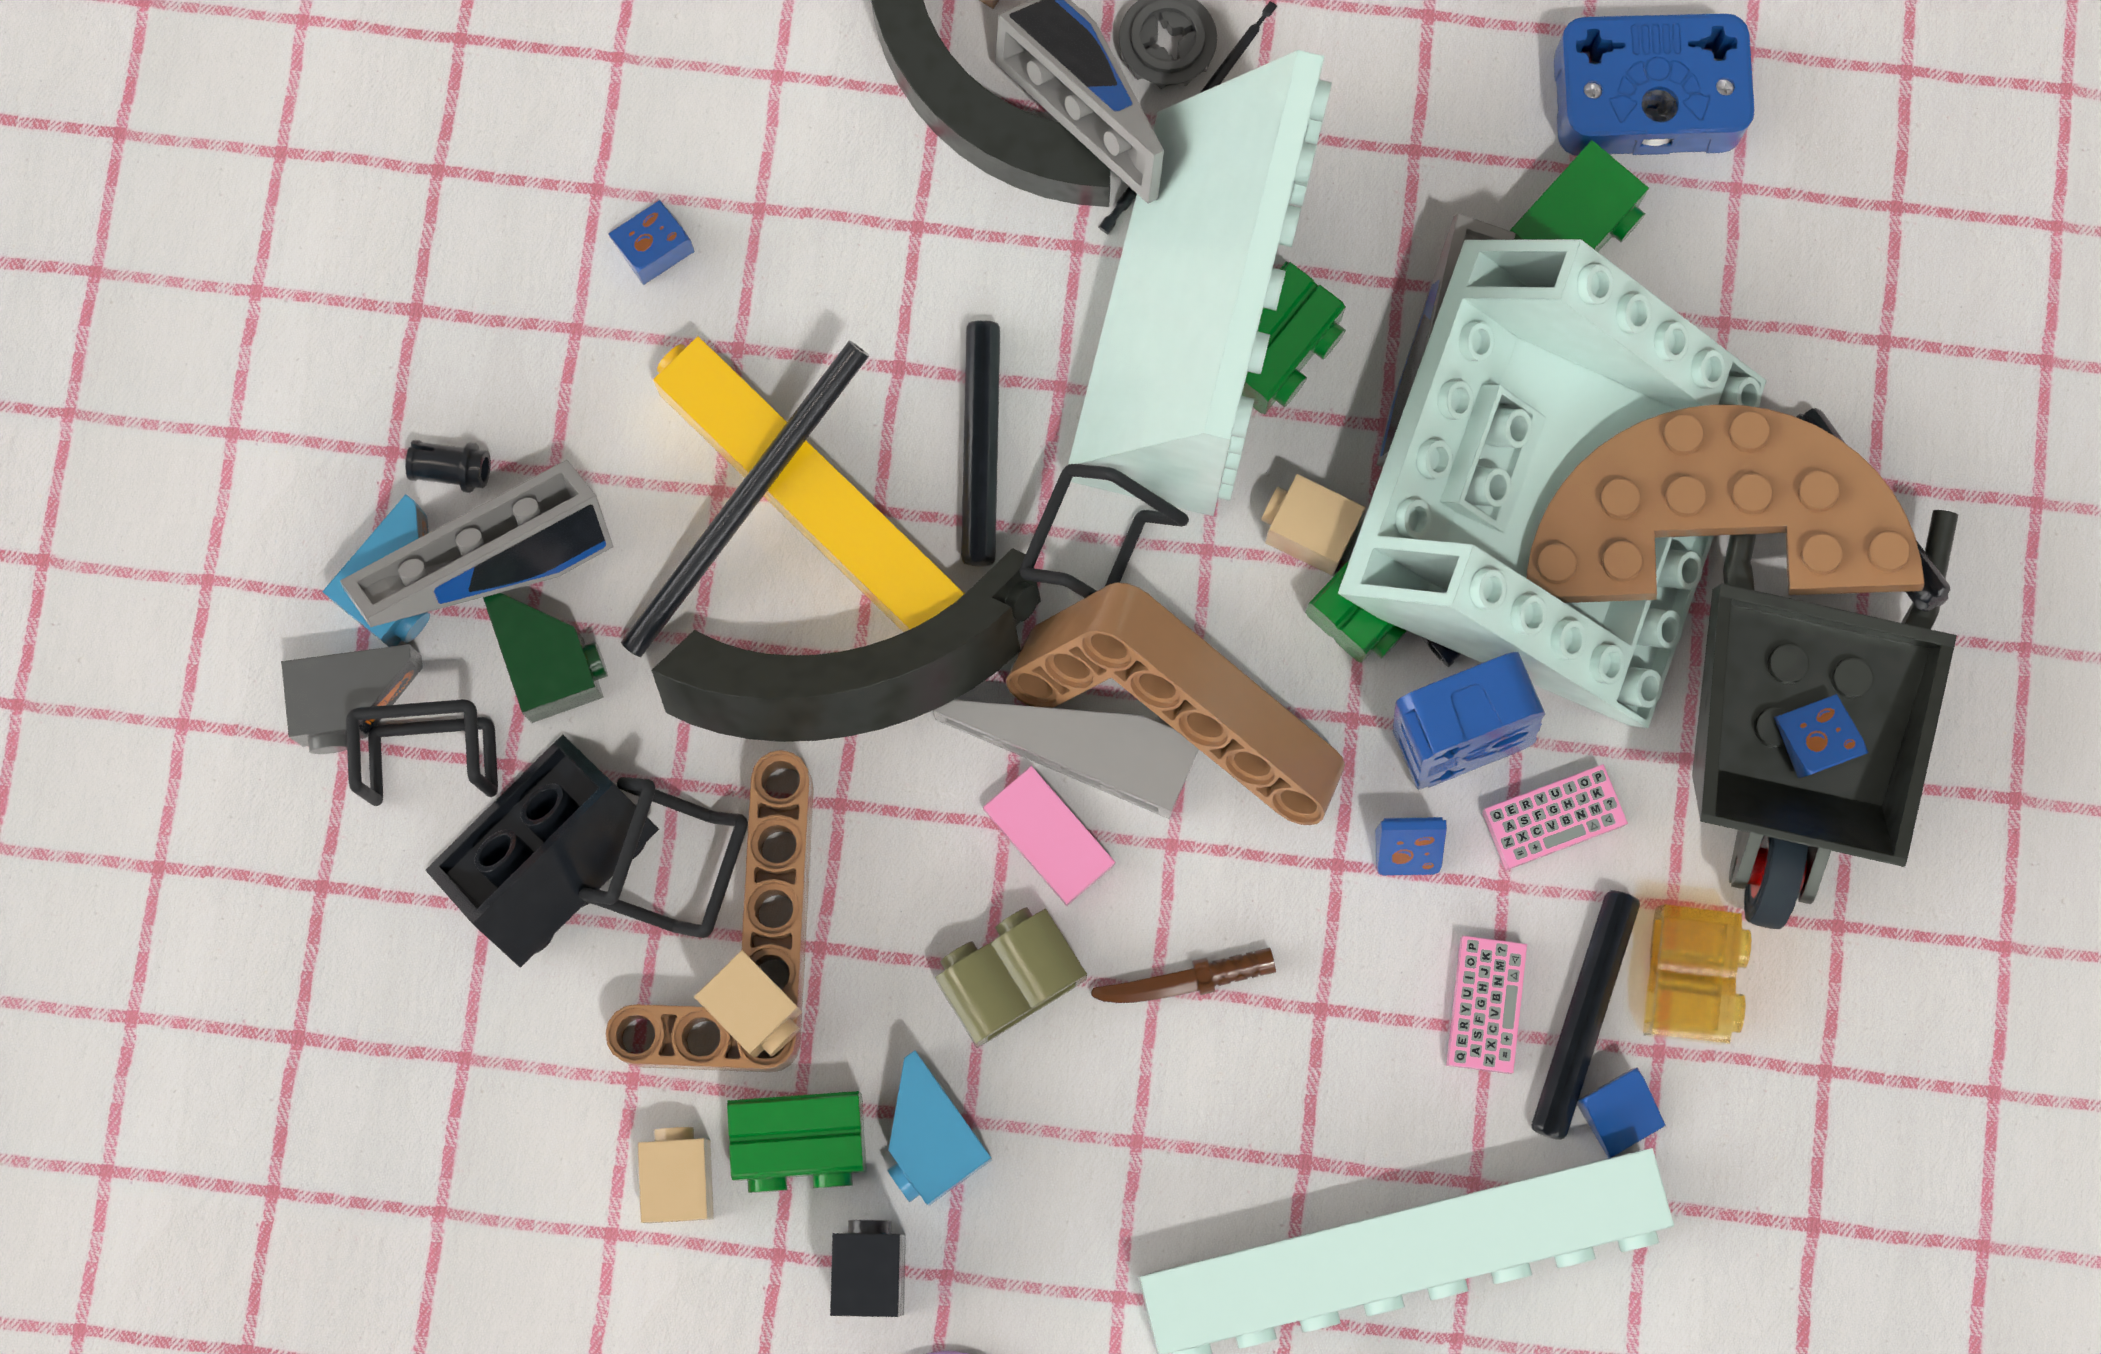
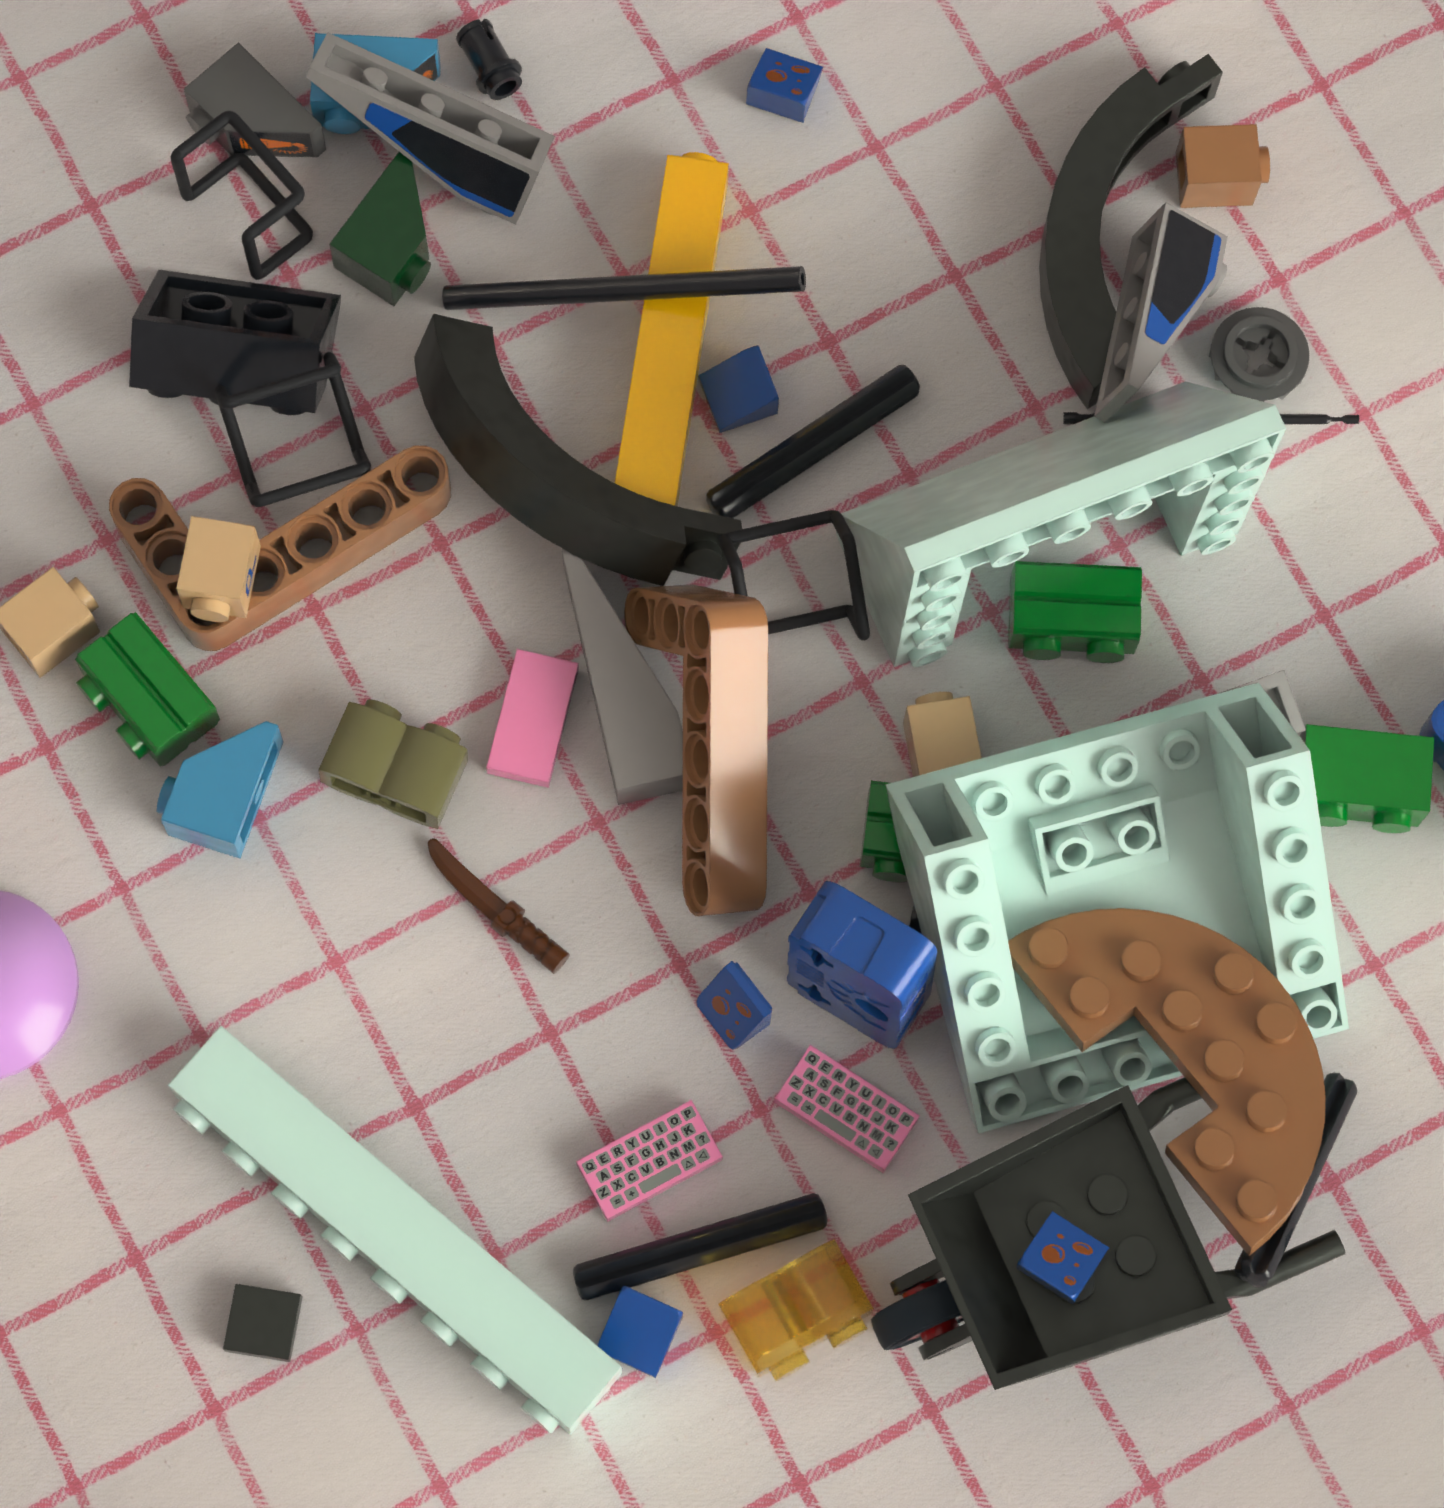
camera: 50 degrees right, 5 degrees down
(868, 1270) = (76, 811): black brick -> none
(892, 468) = (740, 390): none -> blue slope

